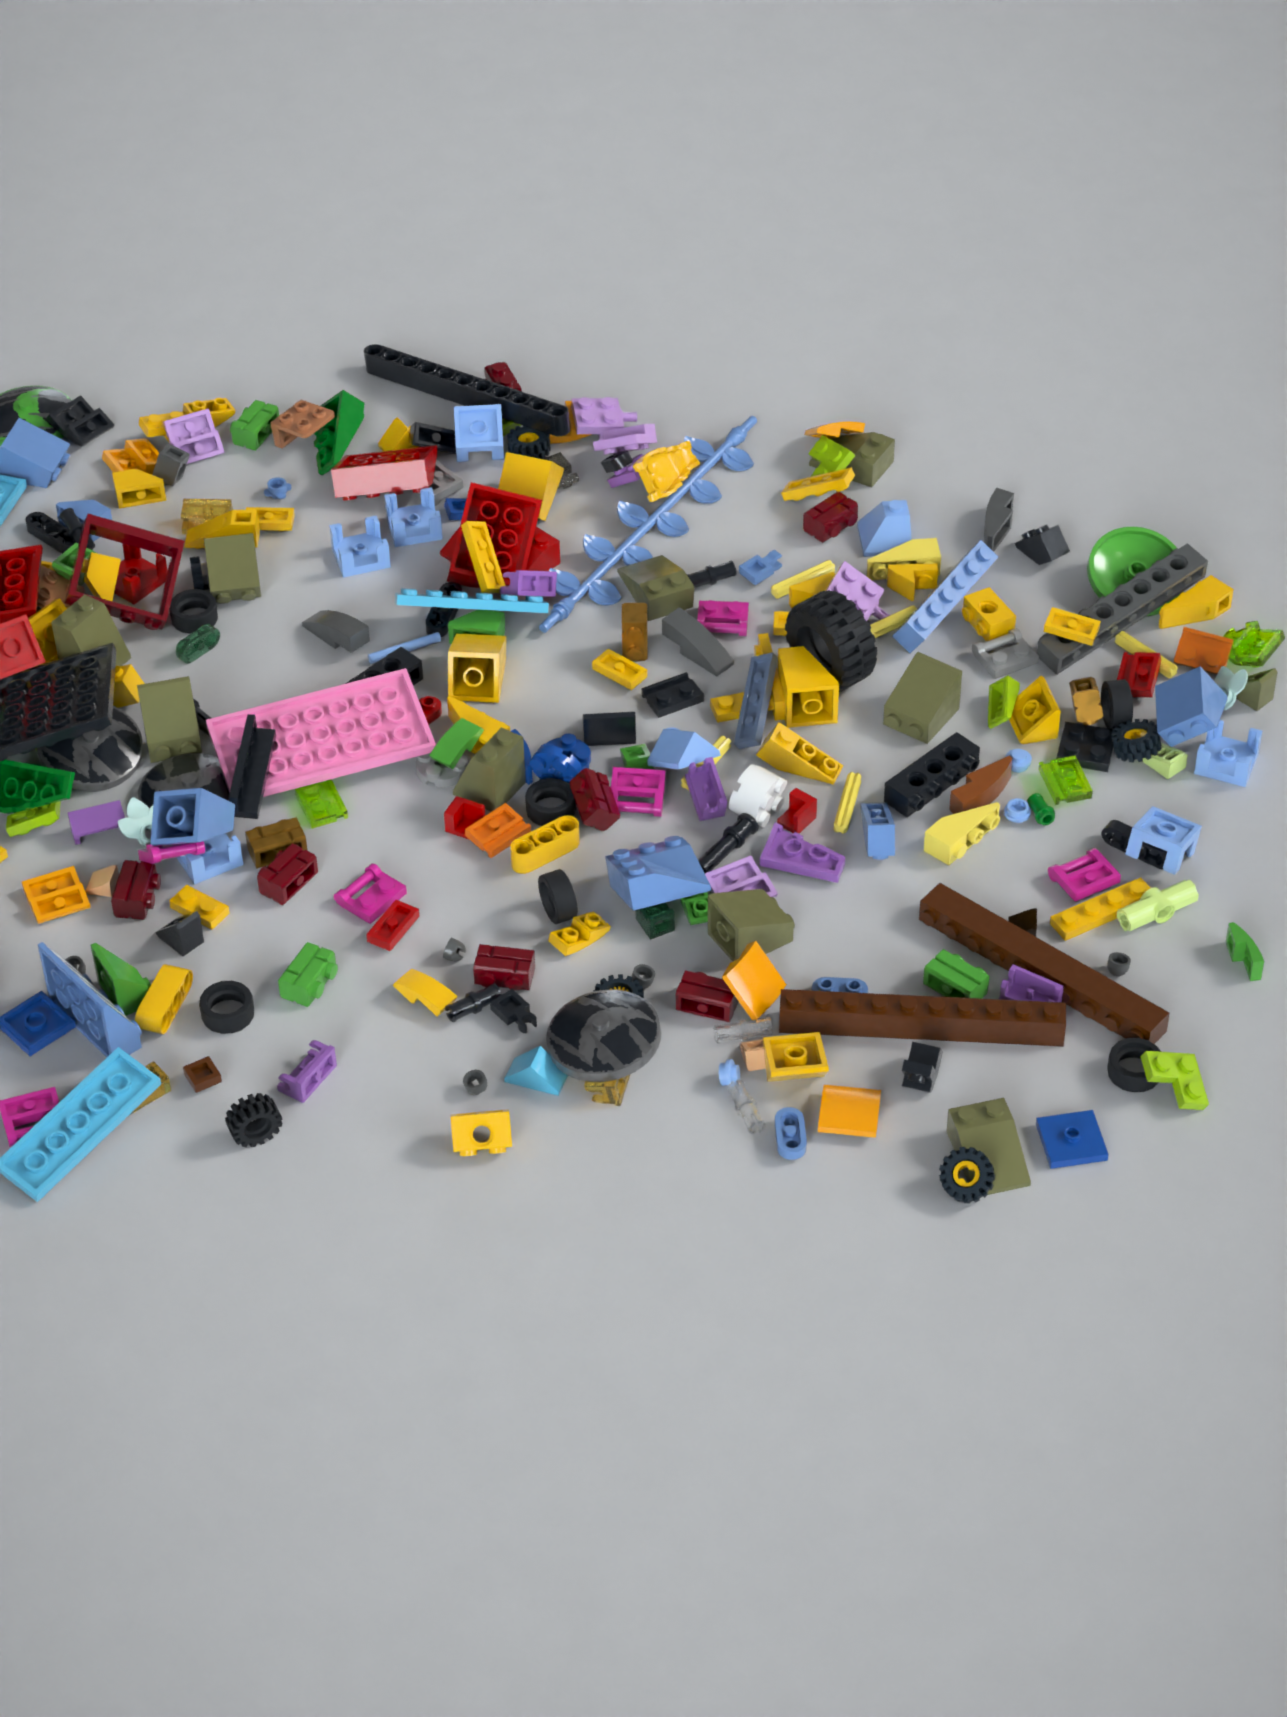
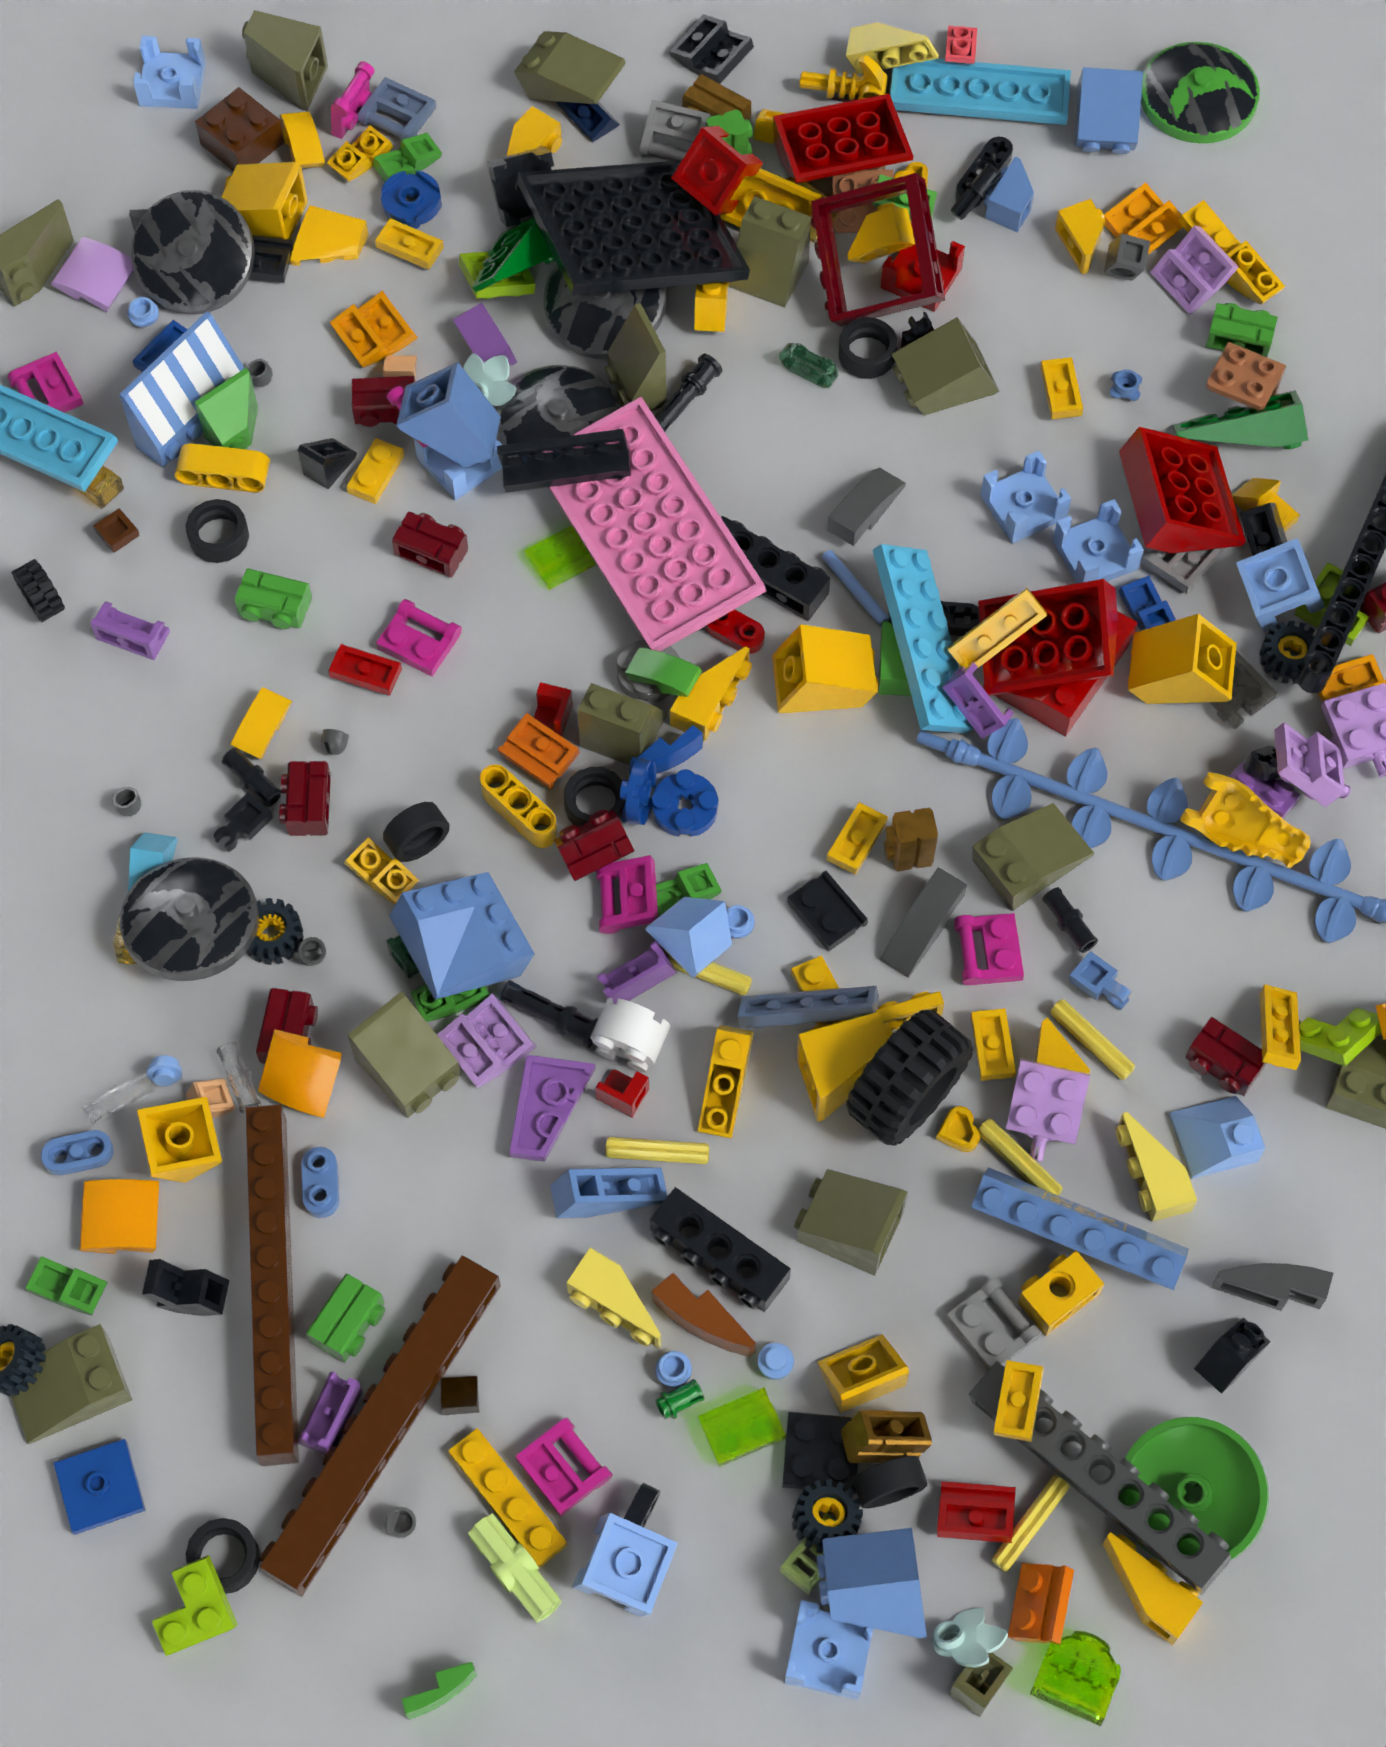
camera: 80 degrees right, 20 degrees up
(79, 421) = (1196, 144): black slope -> none
(202, 510) = (1047, 321): clear yellow hinge -> none
(228, 524) = (1017, 348): yellow slope -> none
(267, 841) = (481, 521): pearl gold brick -> none
(496, 1121) = (43, 818): yellow brick -> none
(609, 728) = (749, 842): black slope -> none
(904, 1150) = (66, 1286): none -> bright green slope
(908, 577) = (1116, 1174): yellow slope -> none
(1002, 700) = (881, 1327): lime slope -> none

